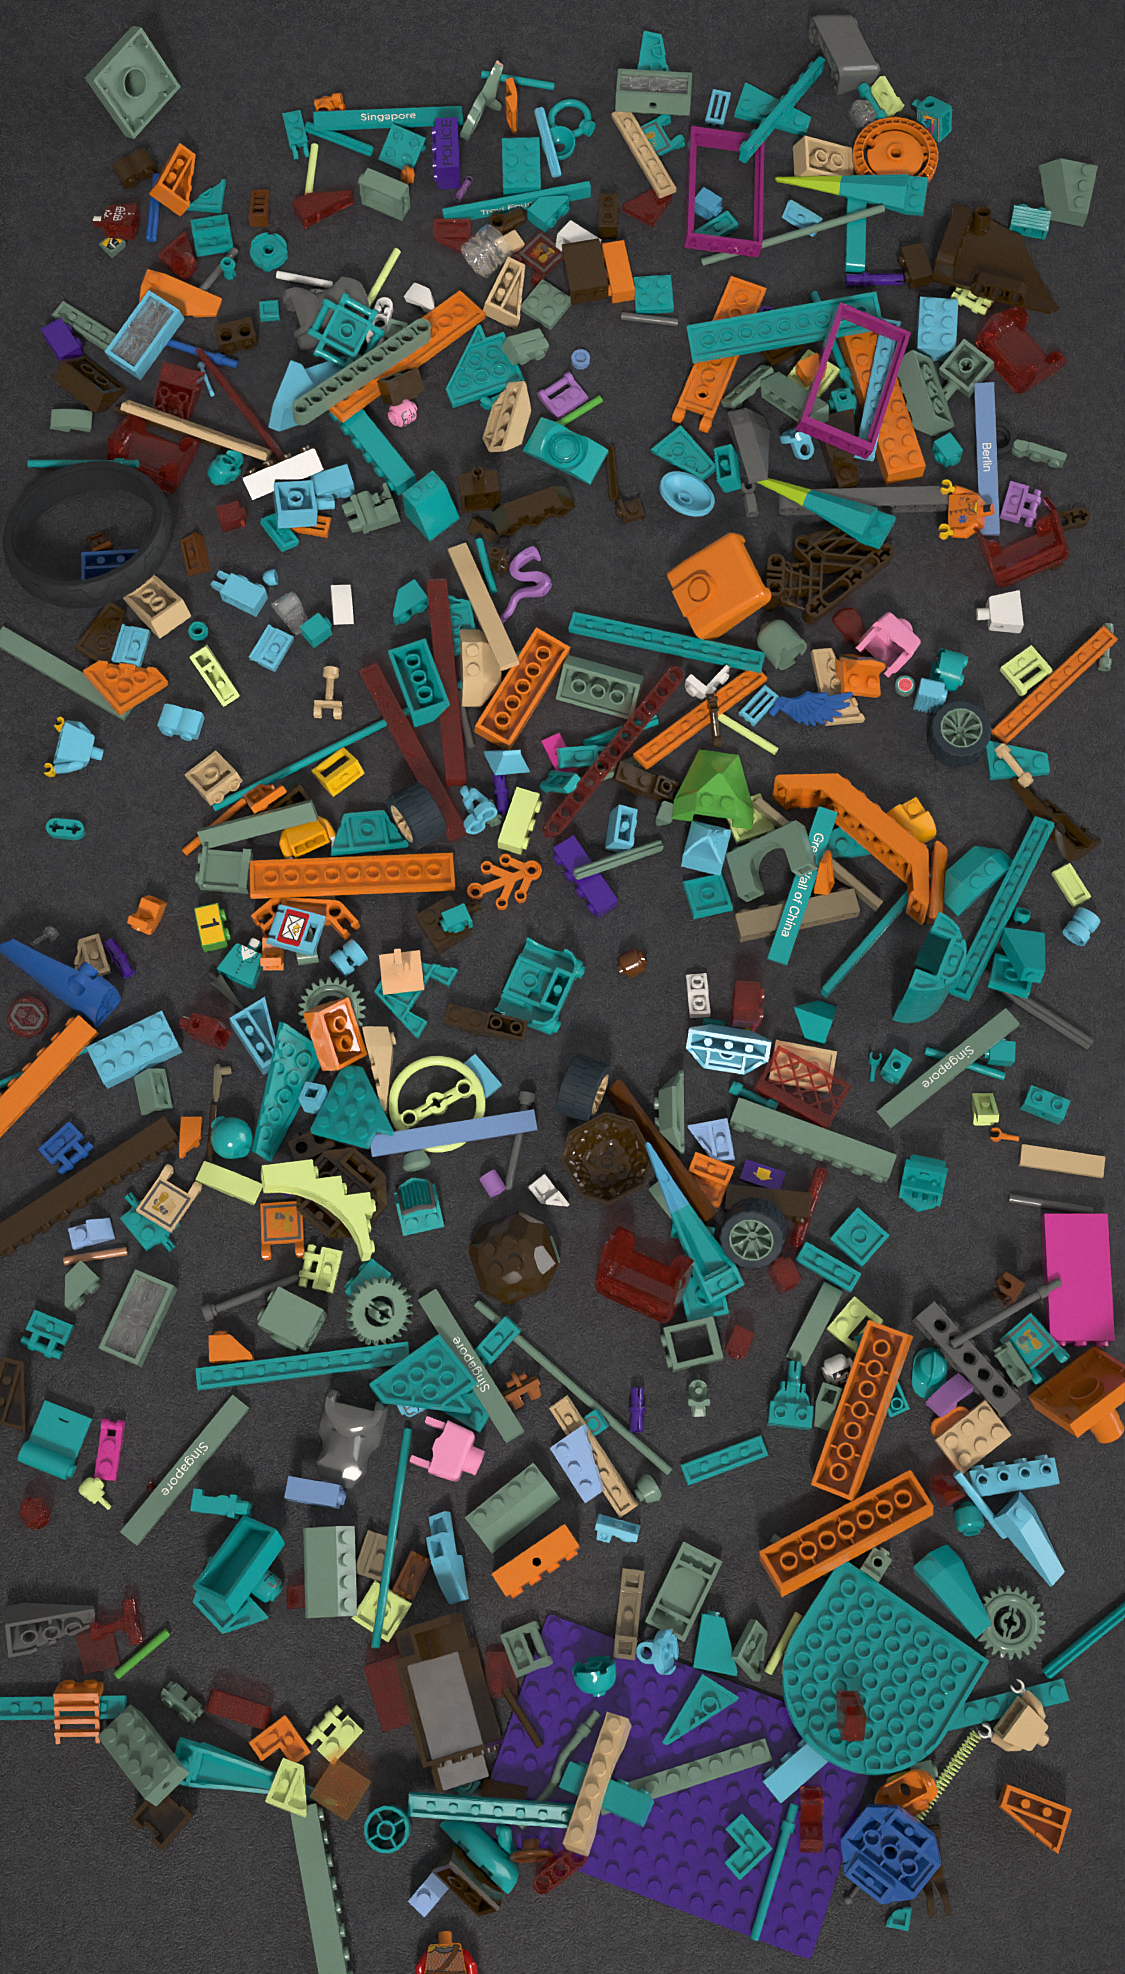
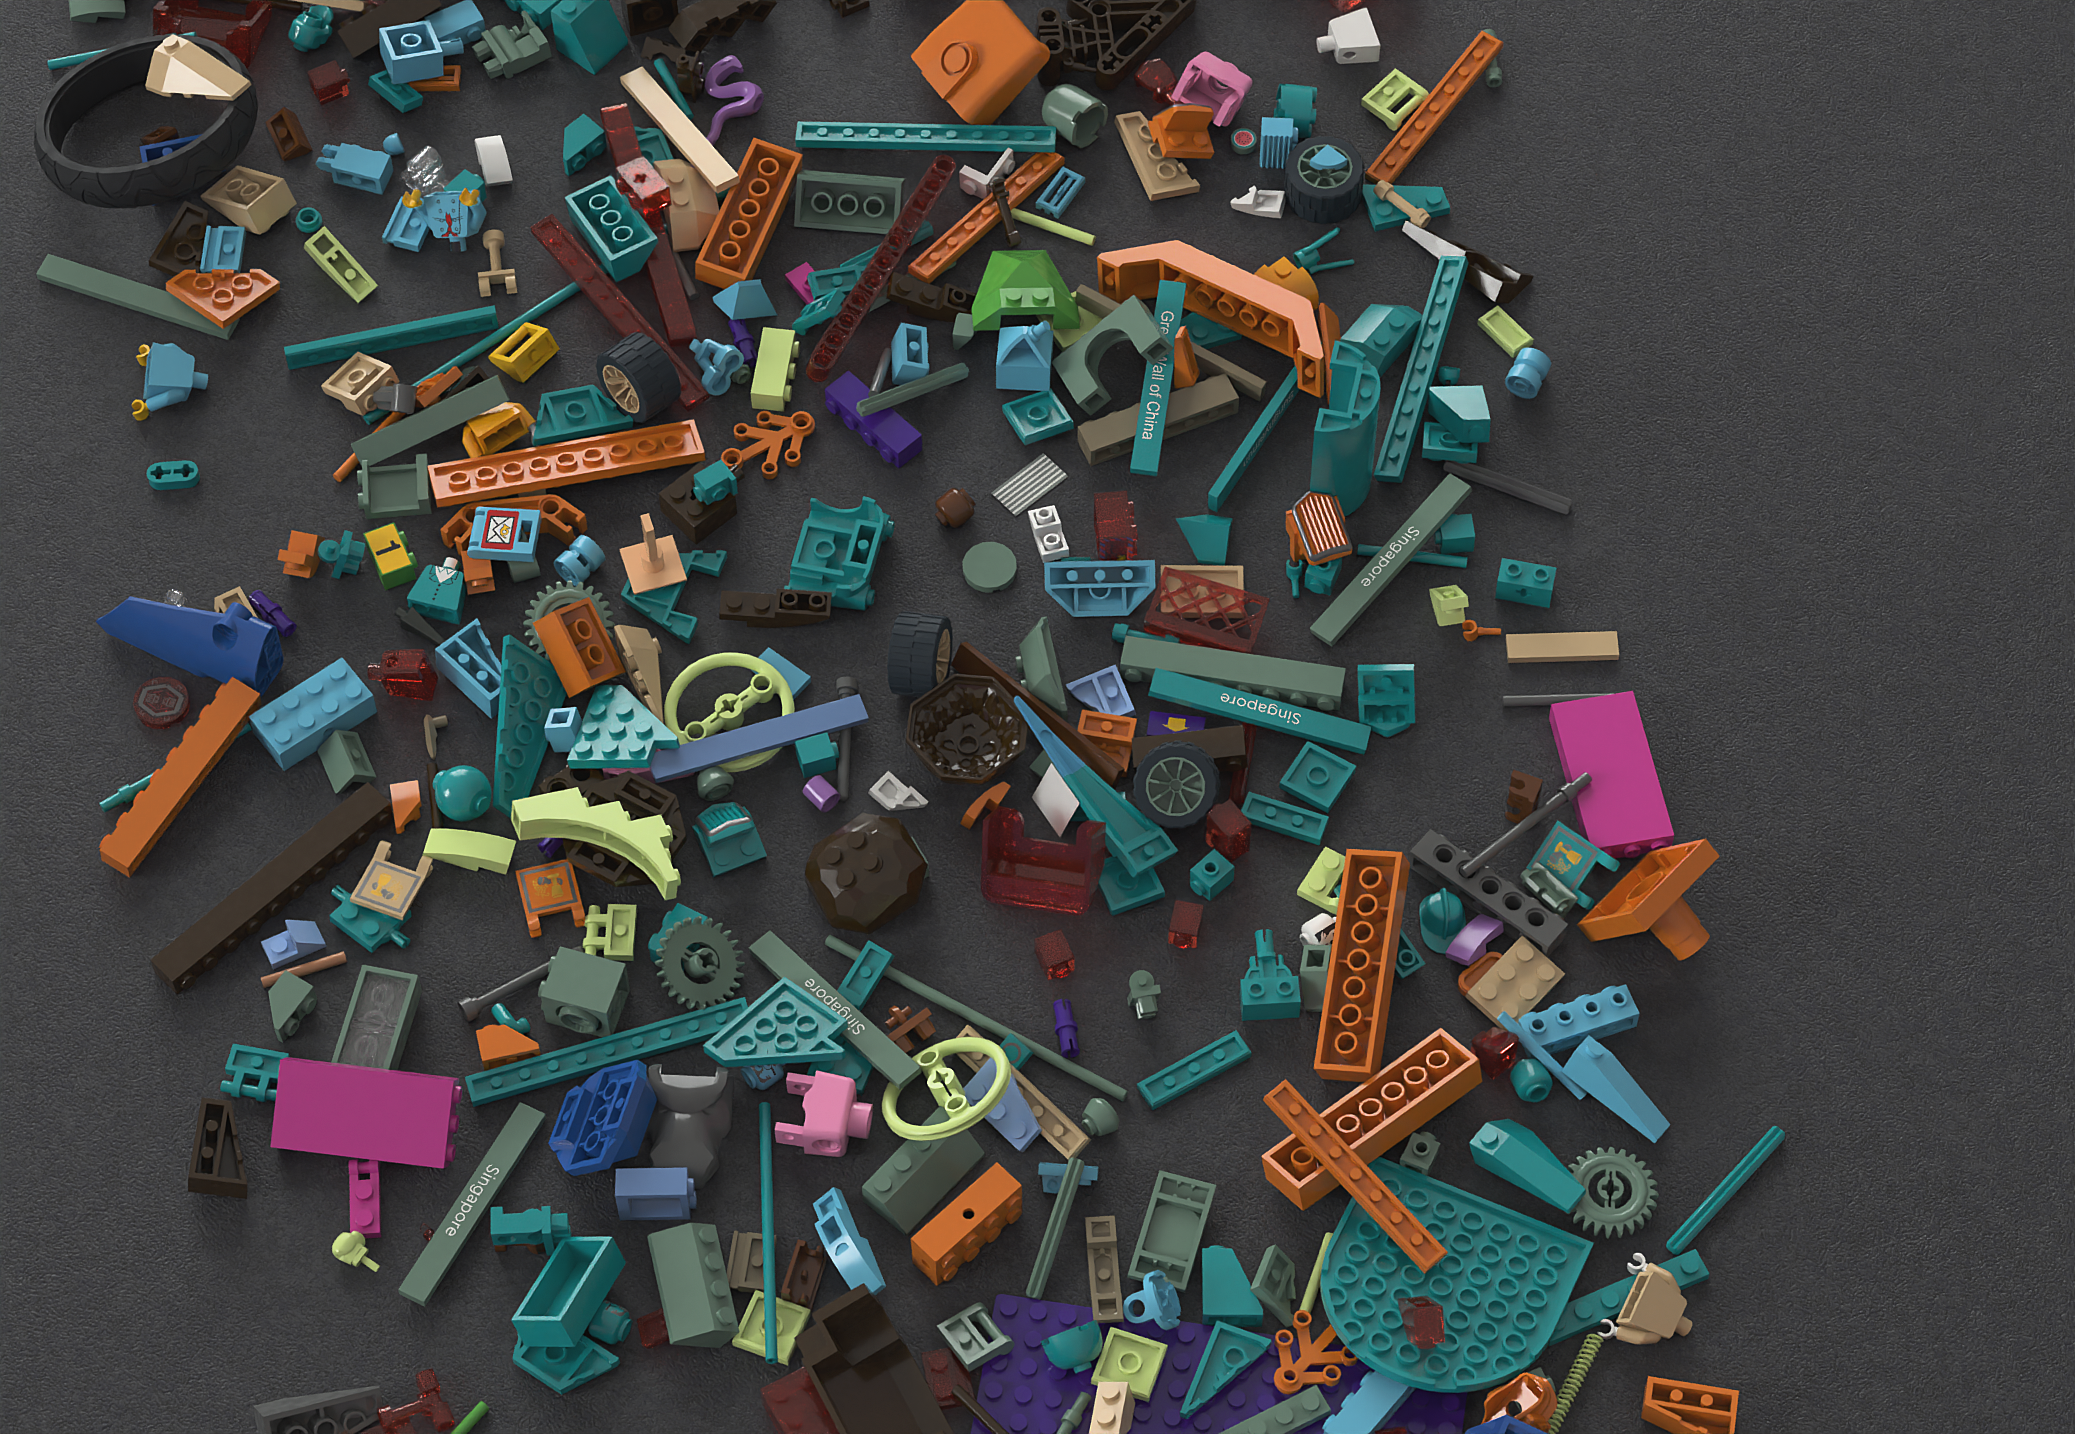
camera: 10 degrees left, 15 degrees down
(34, 1513) = (277, 1288): clear red head -> none
(55, 1443) = (289, 1198): teal door -> none
(61, 1144) = (234, 842): blue plate -> none
(118, 1389) = (366, 1112): none -> dark pink brick
(123, 505) = (189, 70): none -> tan wedge
(176, 922) = (346, 554): none -> teal hips
(180, 722) = (304, 324): medium azure brick -> none
(236, 801) = (396, 398): none -> dark grey piece
(239, 1333) = (504, 1017): none -> teal arm
(242, 743) = (391, 337): none -> teal tile
(287, 1428) = (604, 1119): none -> blue piece
(301, 649) = (449, 214): none -> medium azure torso
(446, 657) = (643, 187): none -> clear red brick
(494, 1150) = (816, 754): none -> teal brick
(549, 1485) = (958, 1108): none -> yellowish green piece
(597, 840) = (880, 372): none -> dark grey bar
(599, 1575) = (1055, 1228): none -> sand green axle
(616, 1211) = (989, 799): none -> orange slope
(633, 1695) = (1130, 1360): none -> yellowish green plate
(639, 1349) = (1054, 955): none -> clear red brick
(649, 1015) = (989, 567): none -> sand green tile
(662, 1224) = (1055, 800): none -> white sticker
(666, 1340) = (1155, 947): sand green window -> none
(691, 950) = (1029, 484): none -> light grey sticker
(765, 1305) = (1211, 875): none -> teal brick
(765, 1712) = (1309, 1355): none -> orange plant
(812, 707) = (1128, 179): blue animal -> none
(814, 1324) = (1280, 888): sand green slope -> none
(824, 1587) = (1355, 1176): none -> orange tile
(826, 1177) = (1260, 711): none -> teal tile
(898, 1038) = (1317, 529): none -> orange piece
(908, 741) = (1261, 203): none -> white slope
(934, 794) = (1309, 255): none -> teal plant
(965, 723) = (1328, 159): none -> medium azure tile

